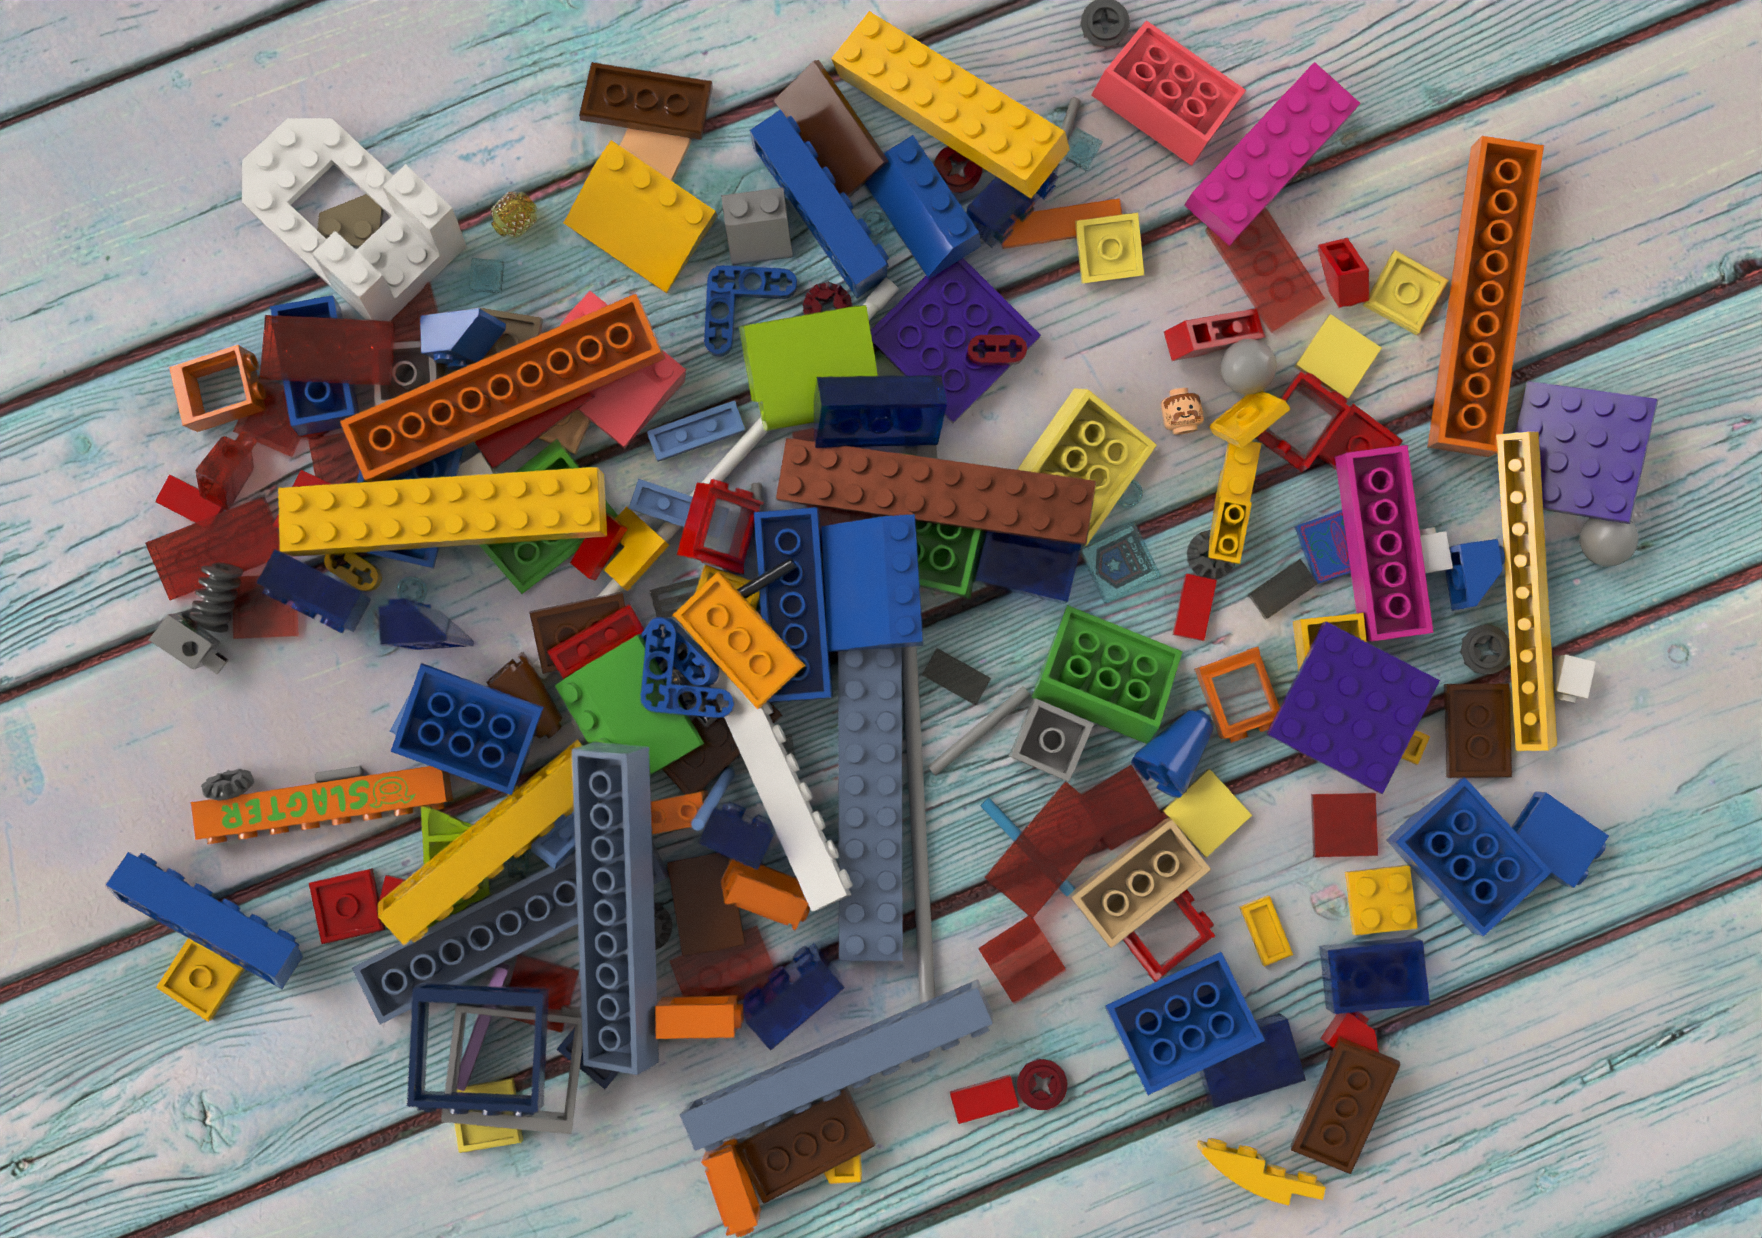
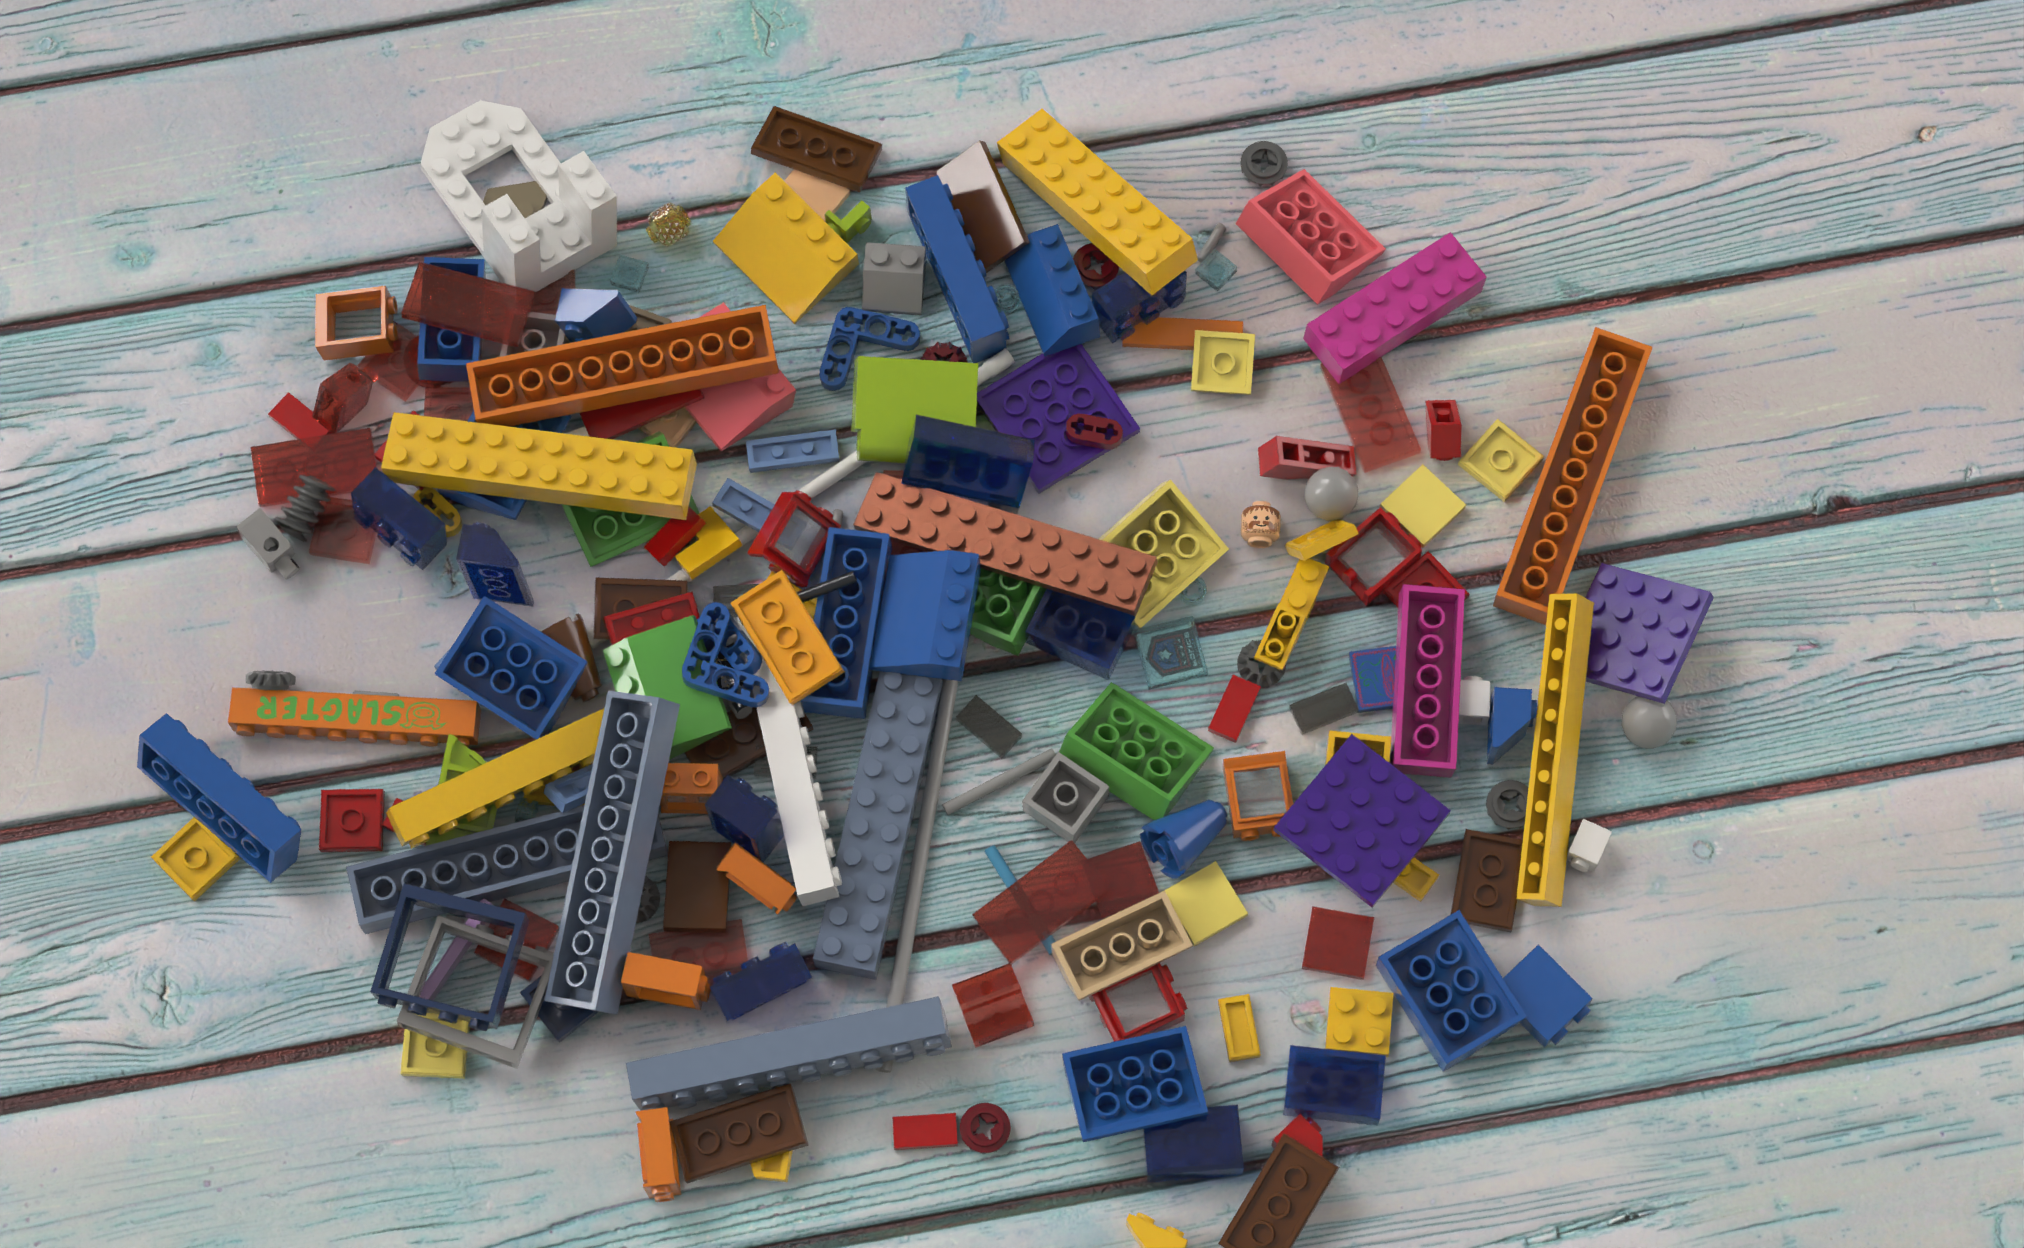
camera: 15 degrees right, 15 degrees down
(704, 173) = (853, 223): none -> lime bracket
(712, 799) = (717, 778): medium blue bar -> none

